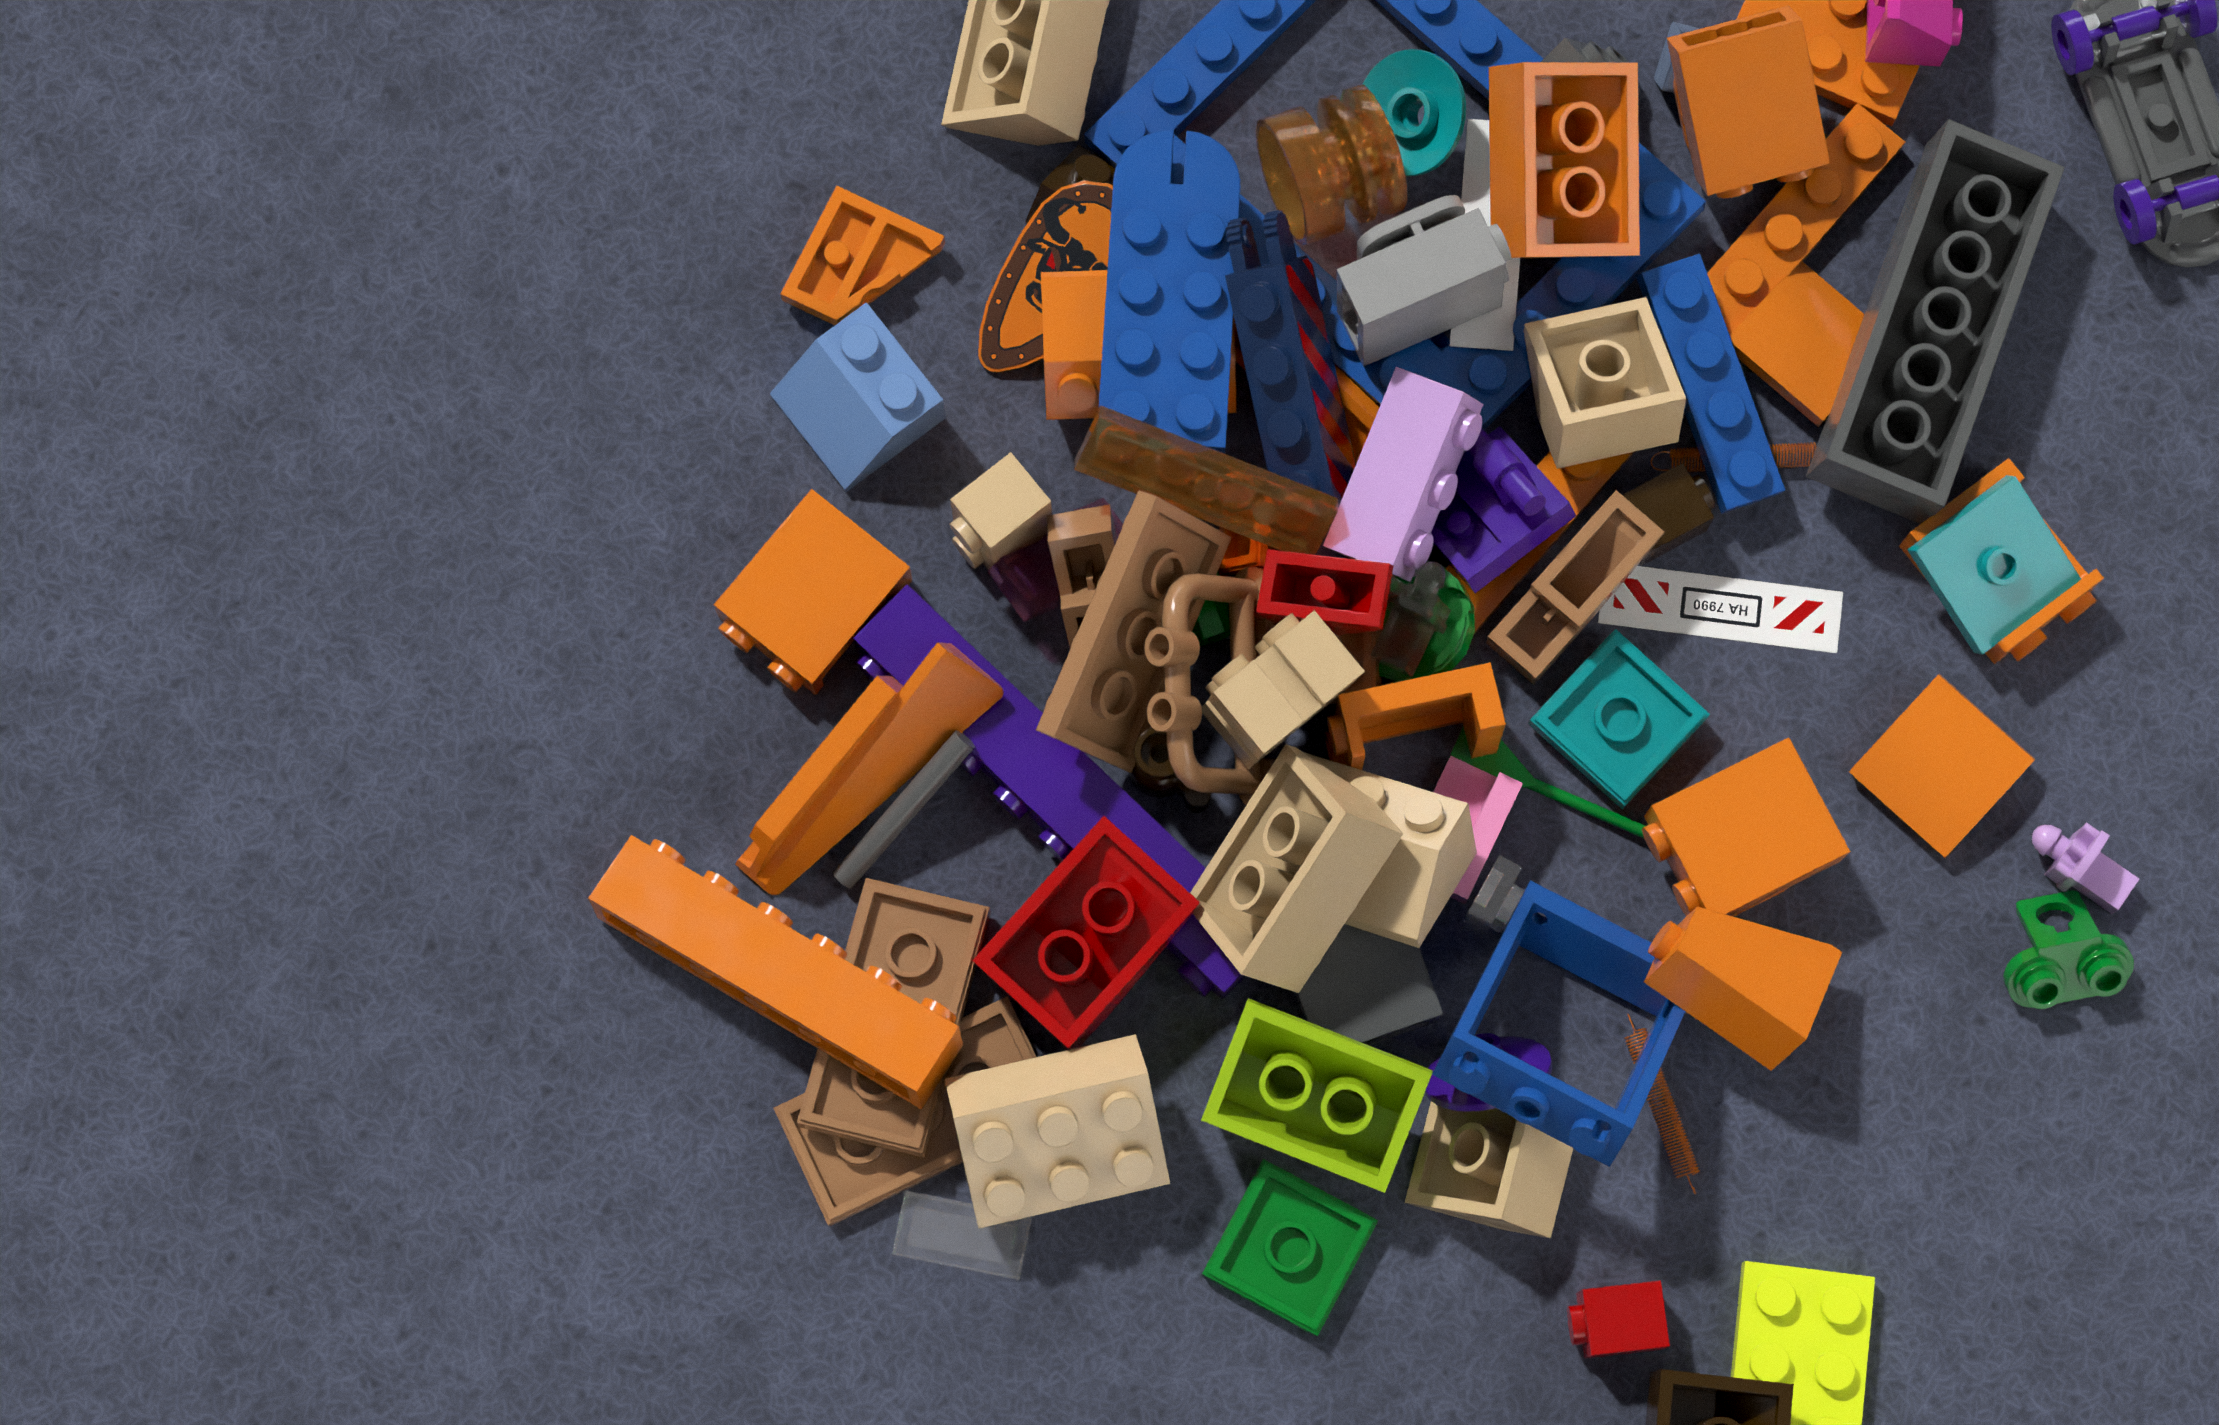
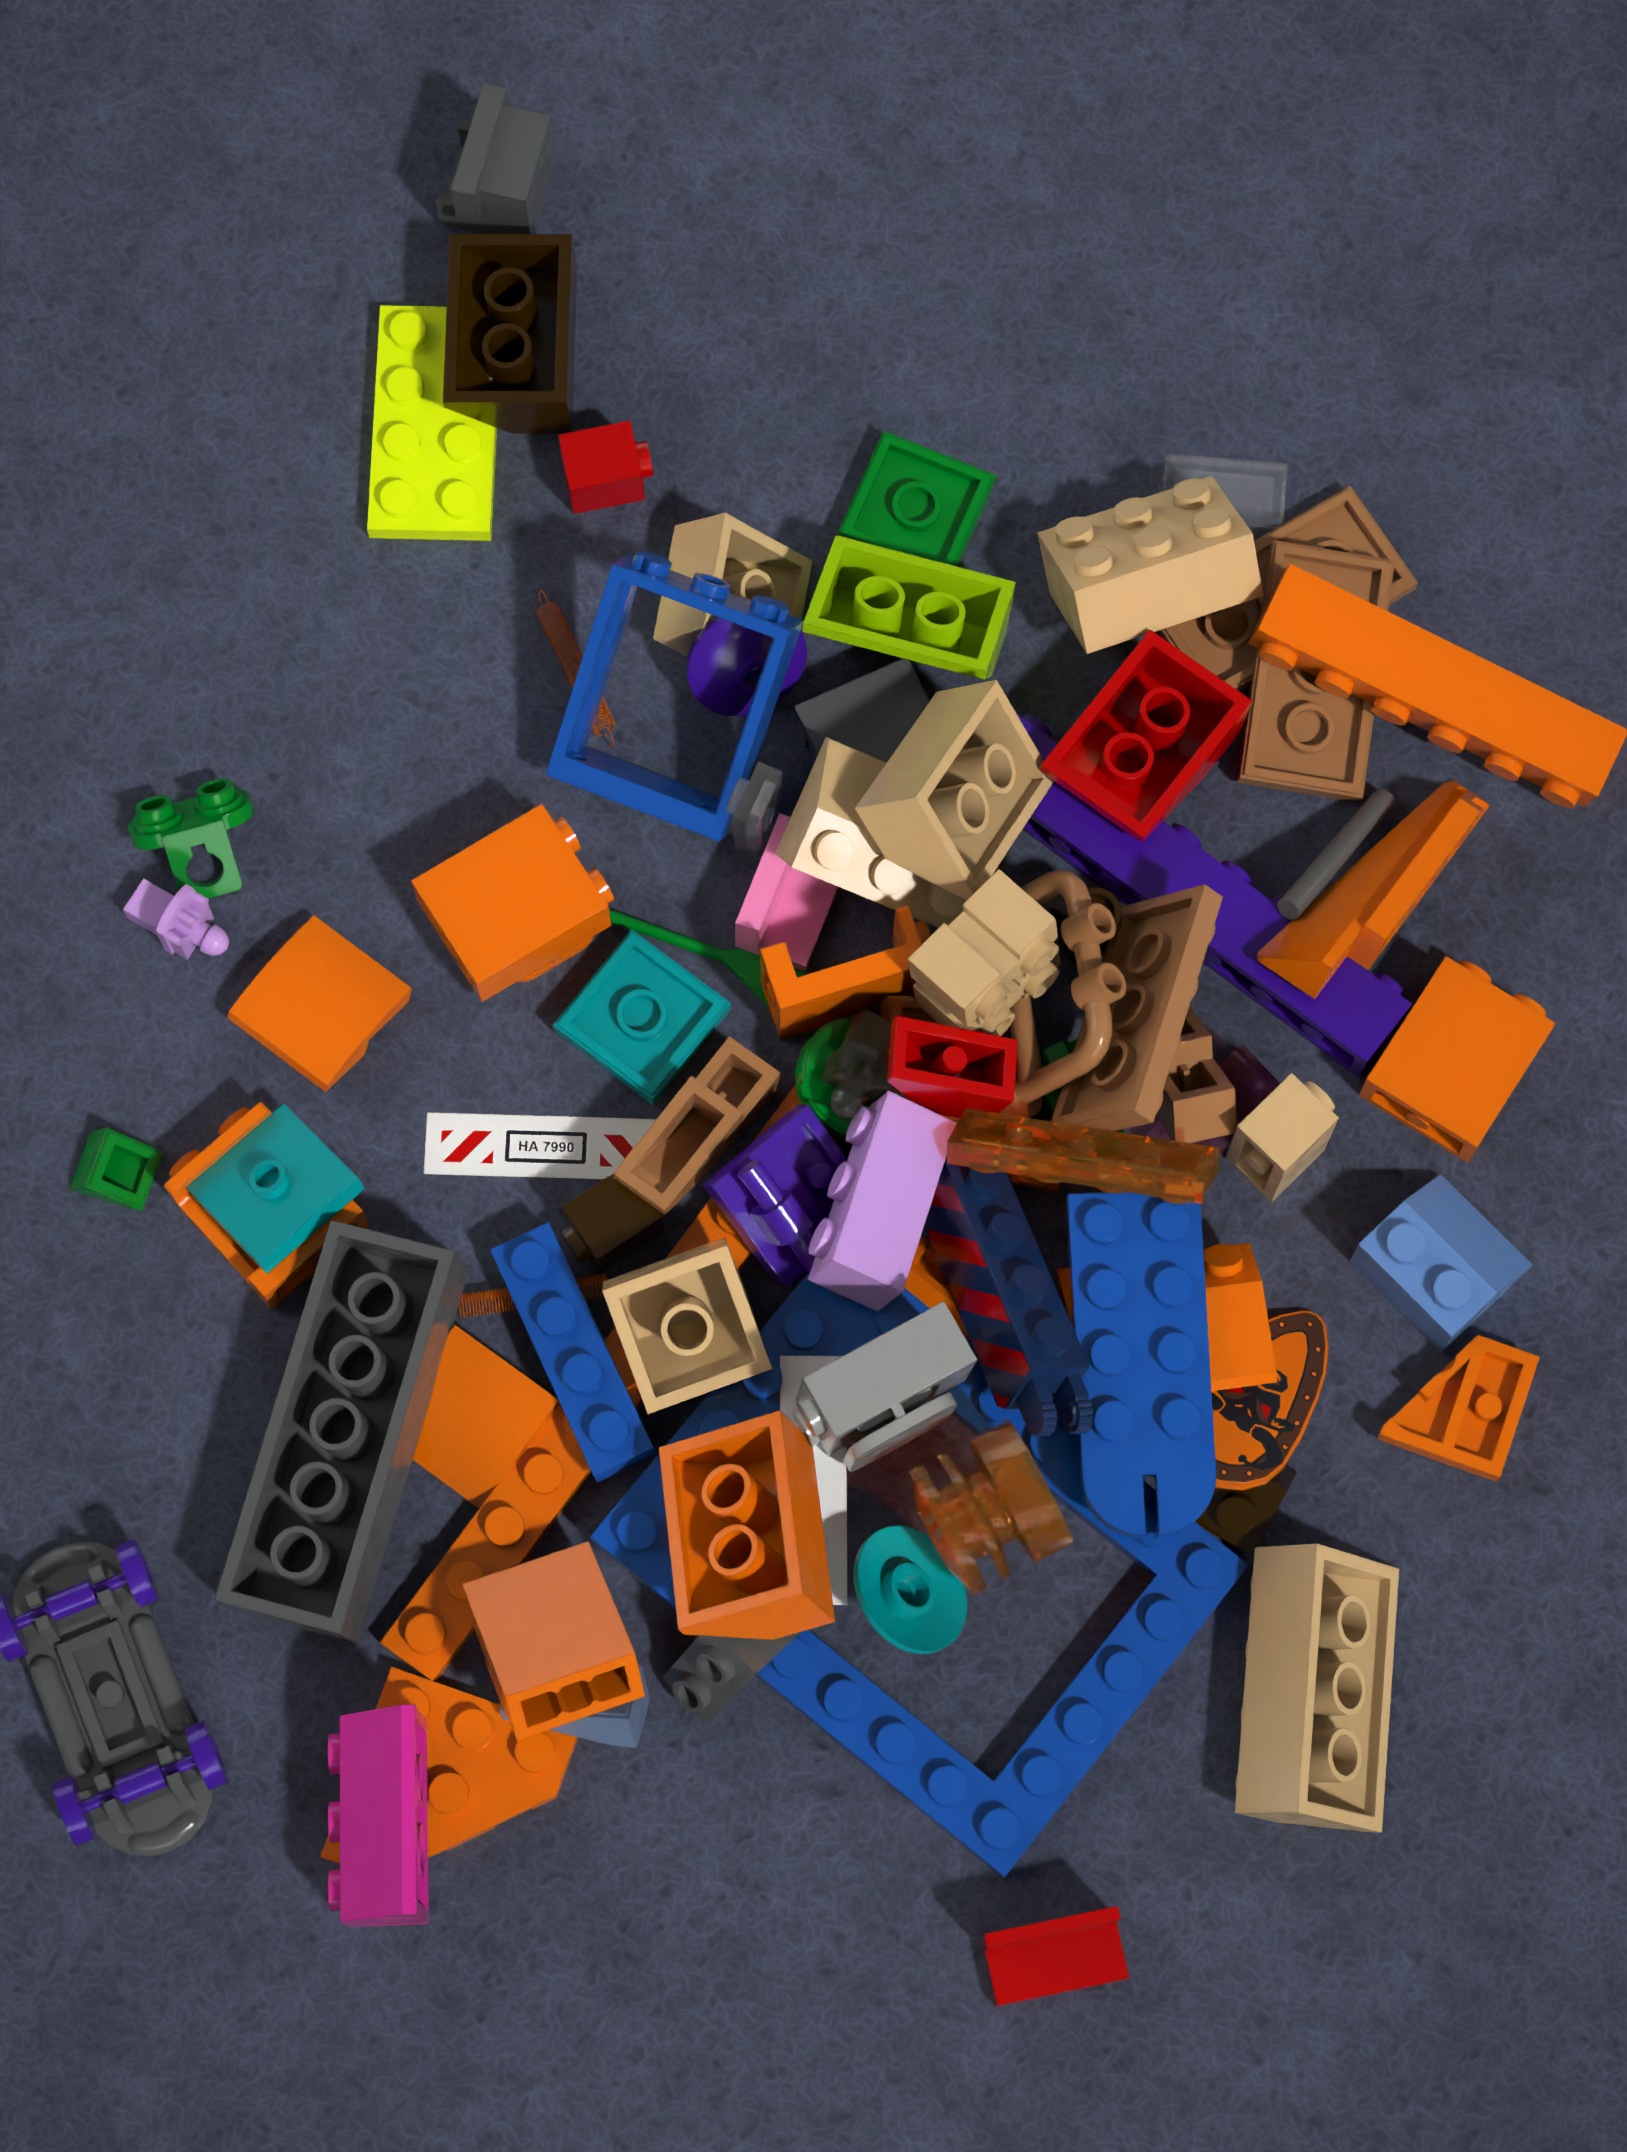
camera: 175 degrees right, 5 degrees down
(1743, 980) = (505, 754): orange slope -> none
(2148, 621) = (116, 1169): none -> green slope

